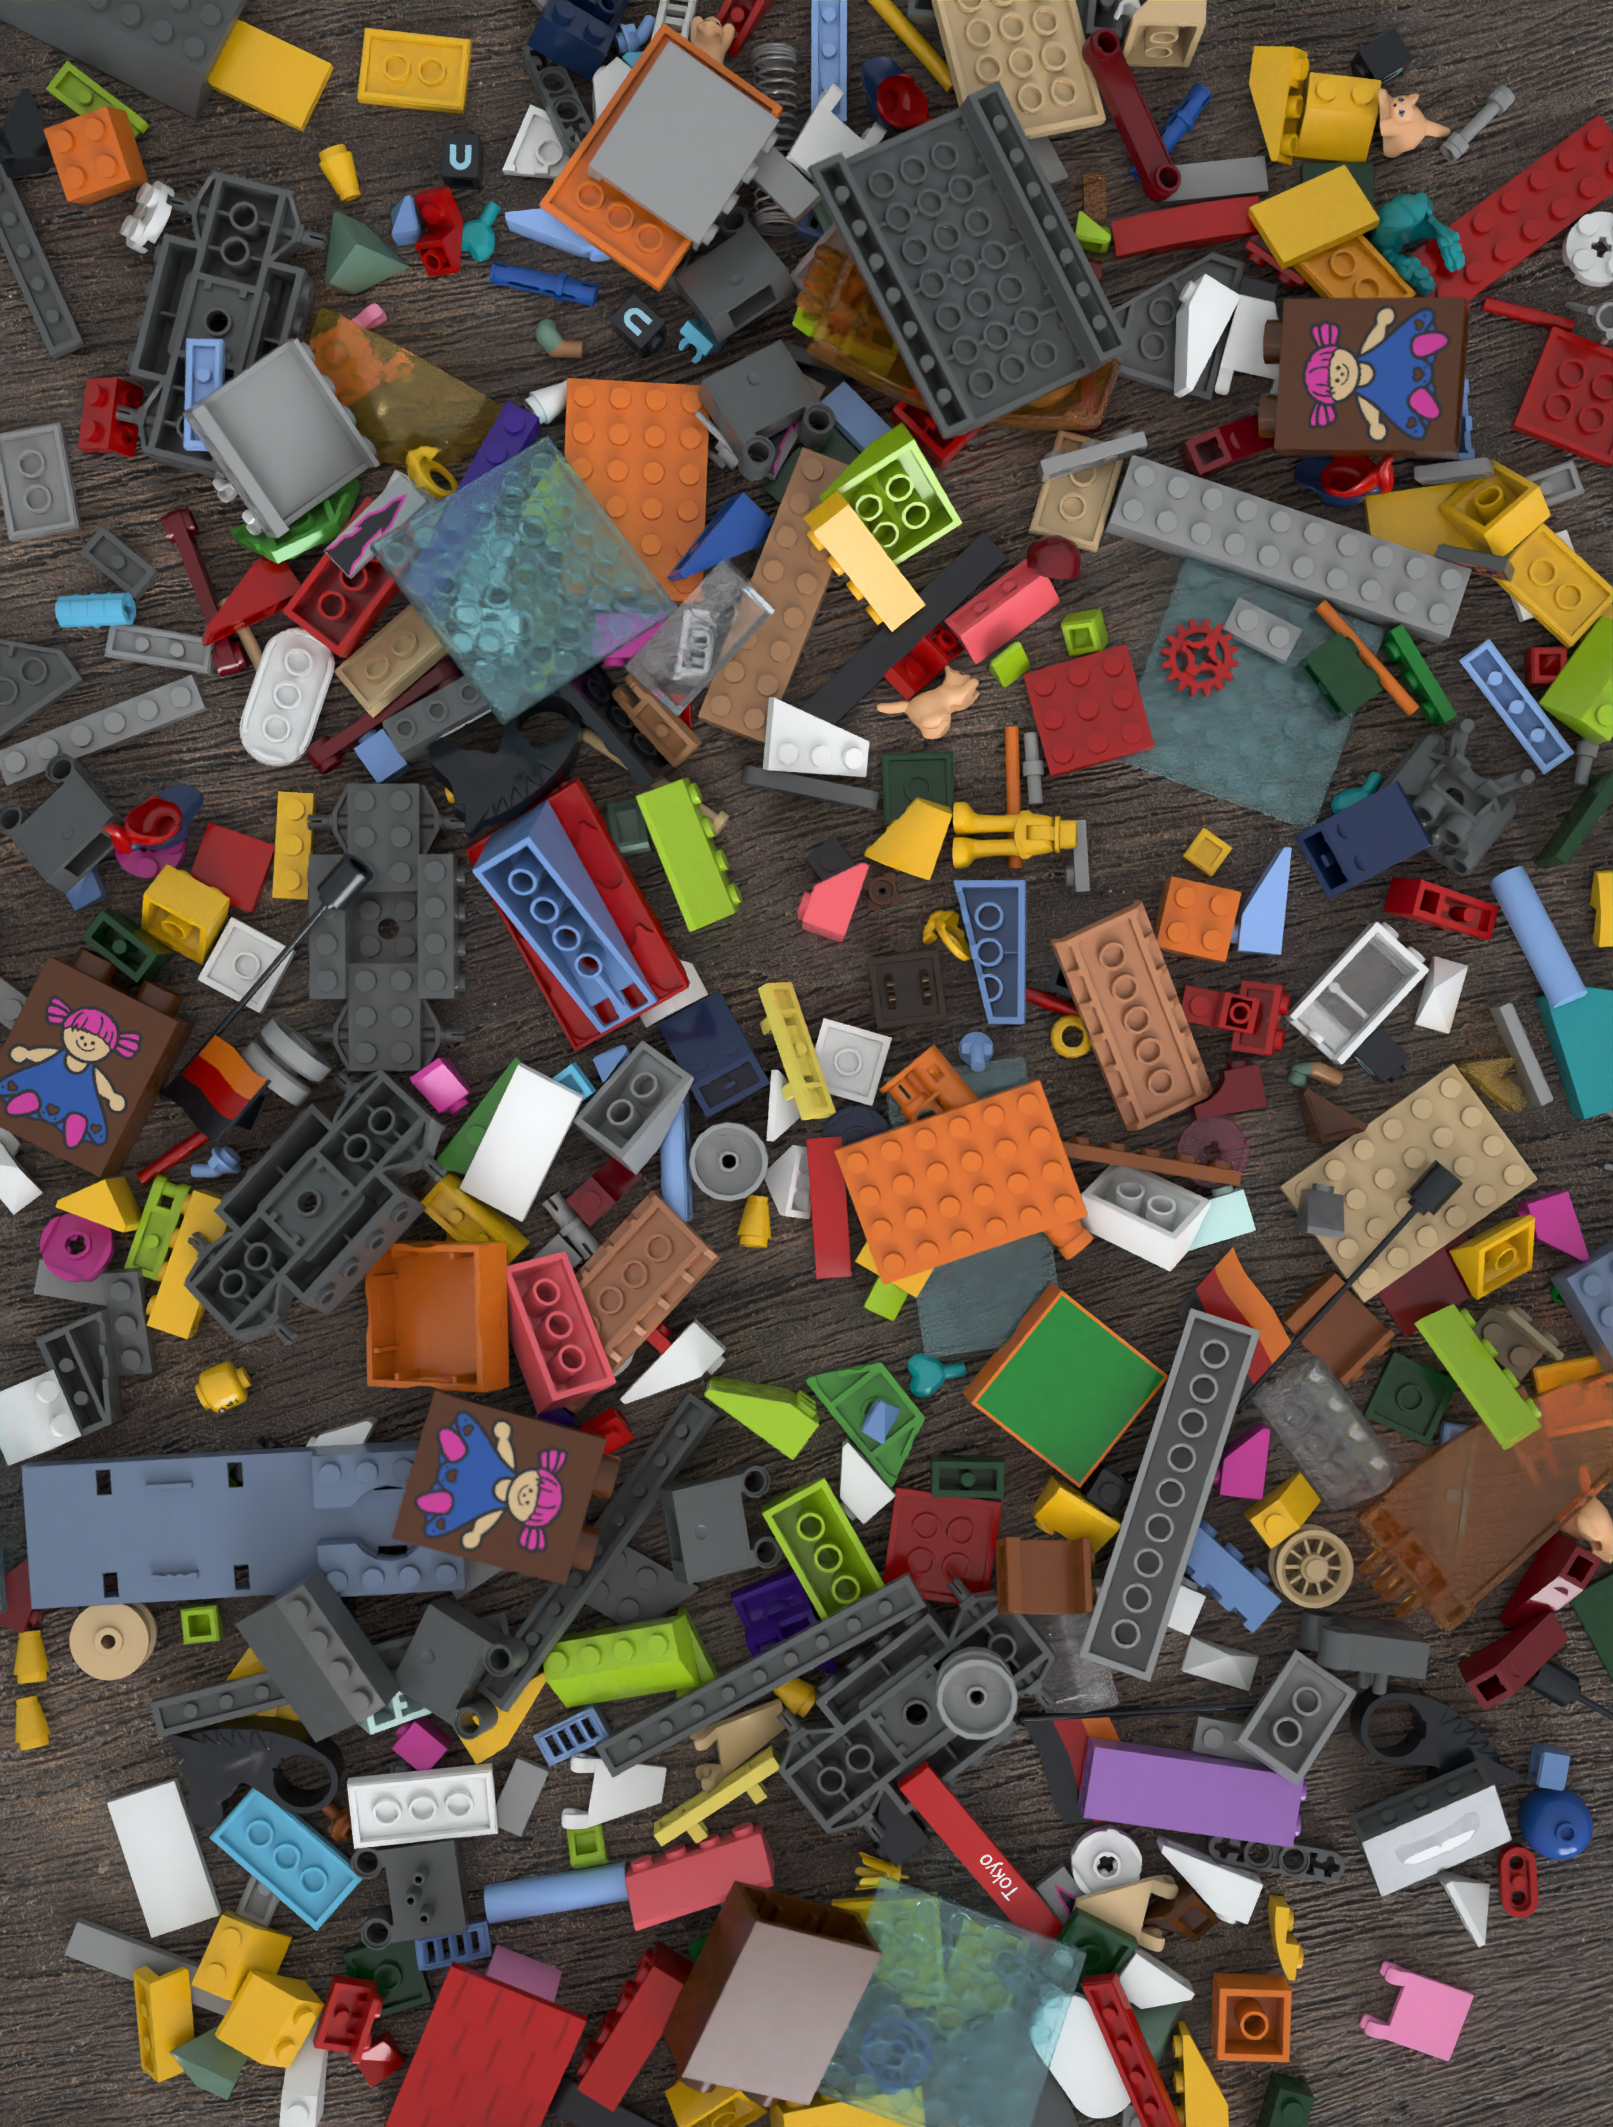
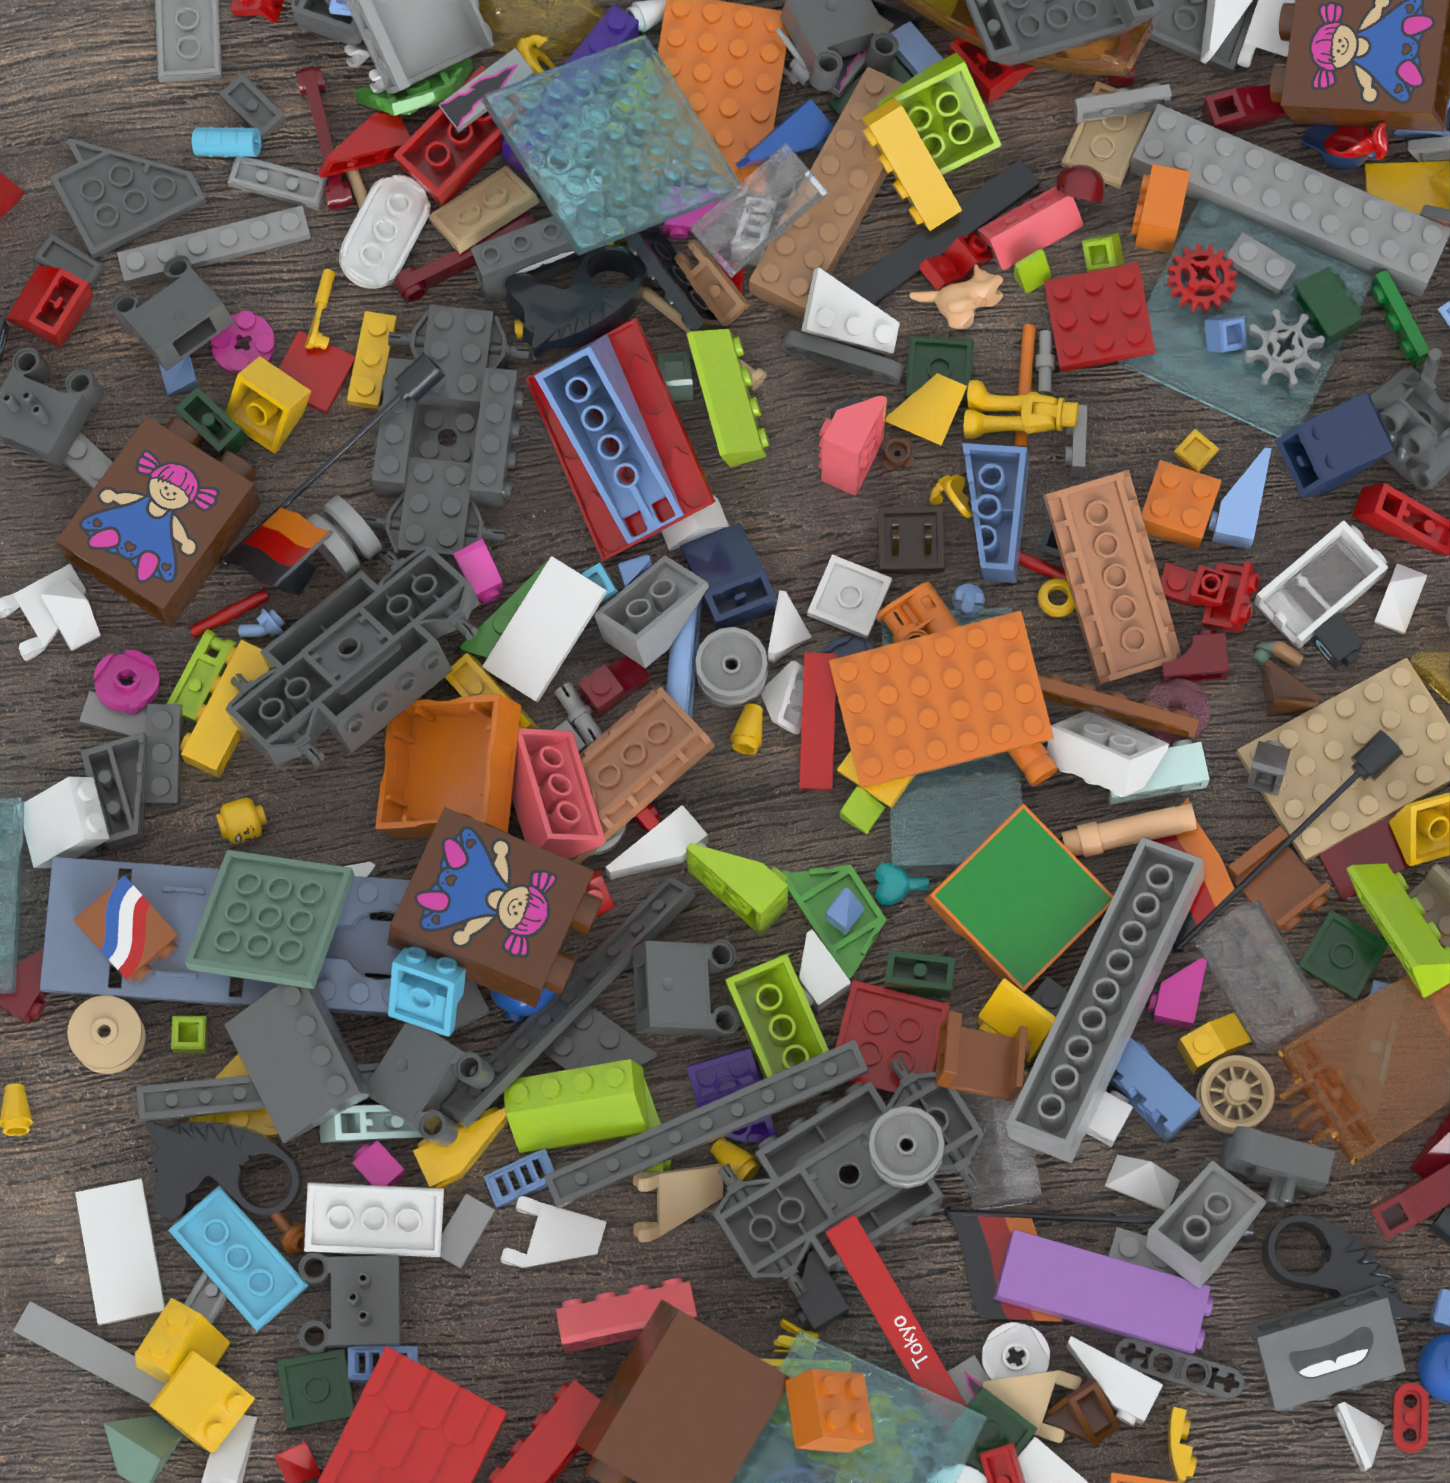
camera: 10 degrees right, 15 degrees down
(31, 1658) = (25, 1051): yellow cone -> none
(105, 1203) = (156, 639): yellow slope -> none
(112, 1545) = (128, 930): none -> panel
(158, 822) = (258, 319): red hair -> none
(162, 2019) = (97, 1398): yellow panel -> none
(227, 832) = (315, 338): none -> yellow piece
(239, 962) = (309, 449): white plate -> none
(263, 1523) = (270, 919): none -> sand green plate
(348, 2017) = (275, 1413): red bracket -> none
(381, 757) = (462, 288): medium blue brick -> none
(442, 1584) = (426, 990): none -> medium azure plate
(555, 1892) = (488, 1327): light blue brick -> none
(587, 1847) = (522, 1289): lime slope -> none
(691, 1813) = (679, 1235): light yellow hinge -> none
(796, 1051) = (799, 559): light yellow hinge -> none
(924, 1984) = (829, 1410): none -> orange brick
(1138, 1303) = (1095, 837): none -> light nougat piece
(1148, 578) = (1160, 208): none -> orange brick
(1230, 718) = (1225, 333): none -> medium blue slope
(1311, 728) = (1292, 358): none -> light grey gear
(1388, 682) = (1368, 314): orange piece -> none

